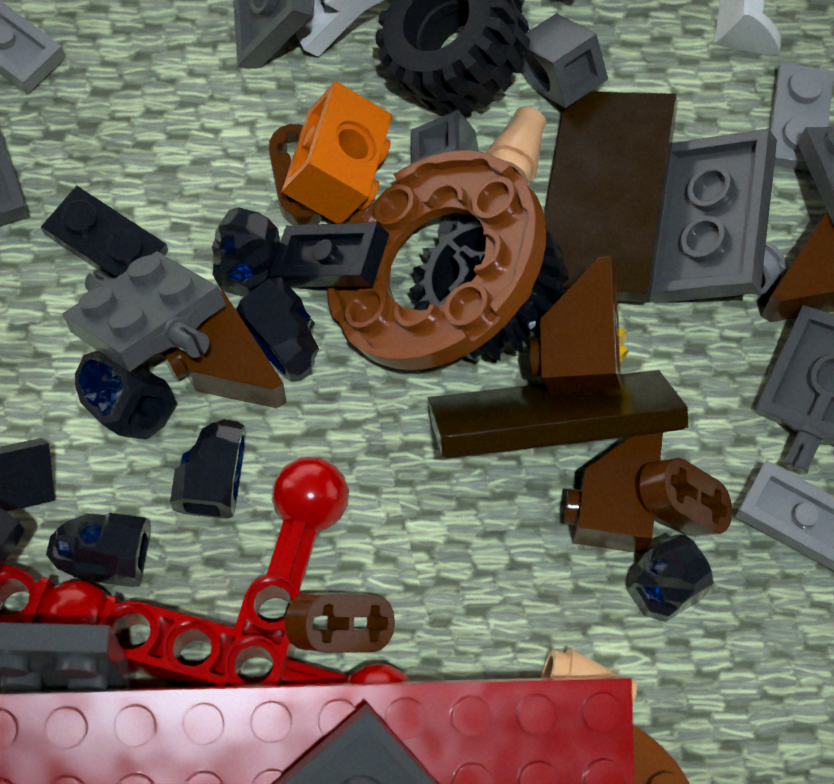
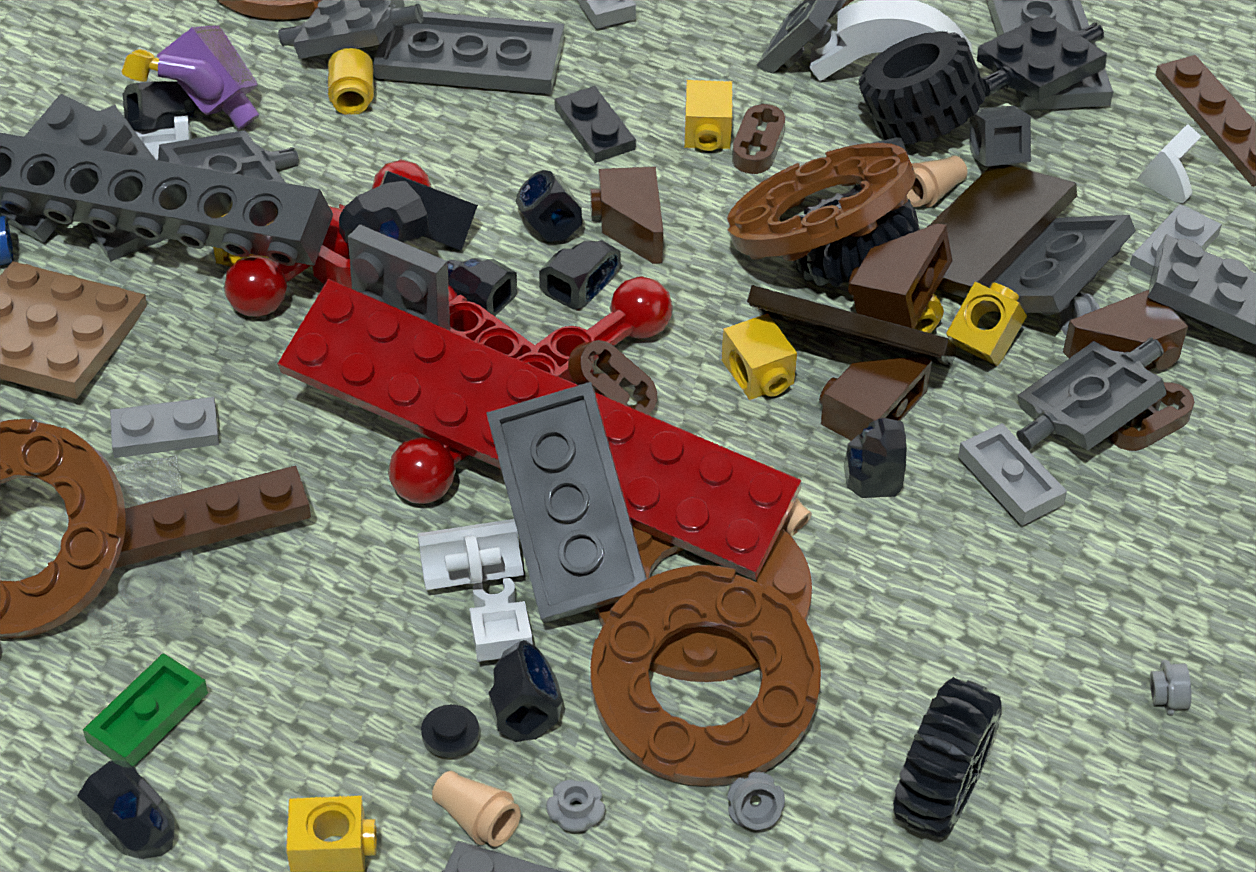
camera: 30 degrees right, 20 degrees down
(145, 311) = (605, 153): dark grey plate -> none
(230, 170) = (708, 114): none -> yellow brick
(244, 251) = (689, 159): black rock -> none
(281, 327) = (684, 210): black rock -> none
(330, 254) = (747, 178): black plate -> none
(339, 154) = (792, 124): orange brick -> none
(473, 499) = (759, 357): none -> yellow brick
(685, 497) = (926, 416): reddish brown beam -> none
(689, 359) = (991, 343): none -> yellow brick

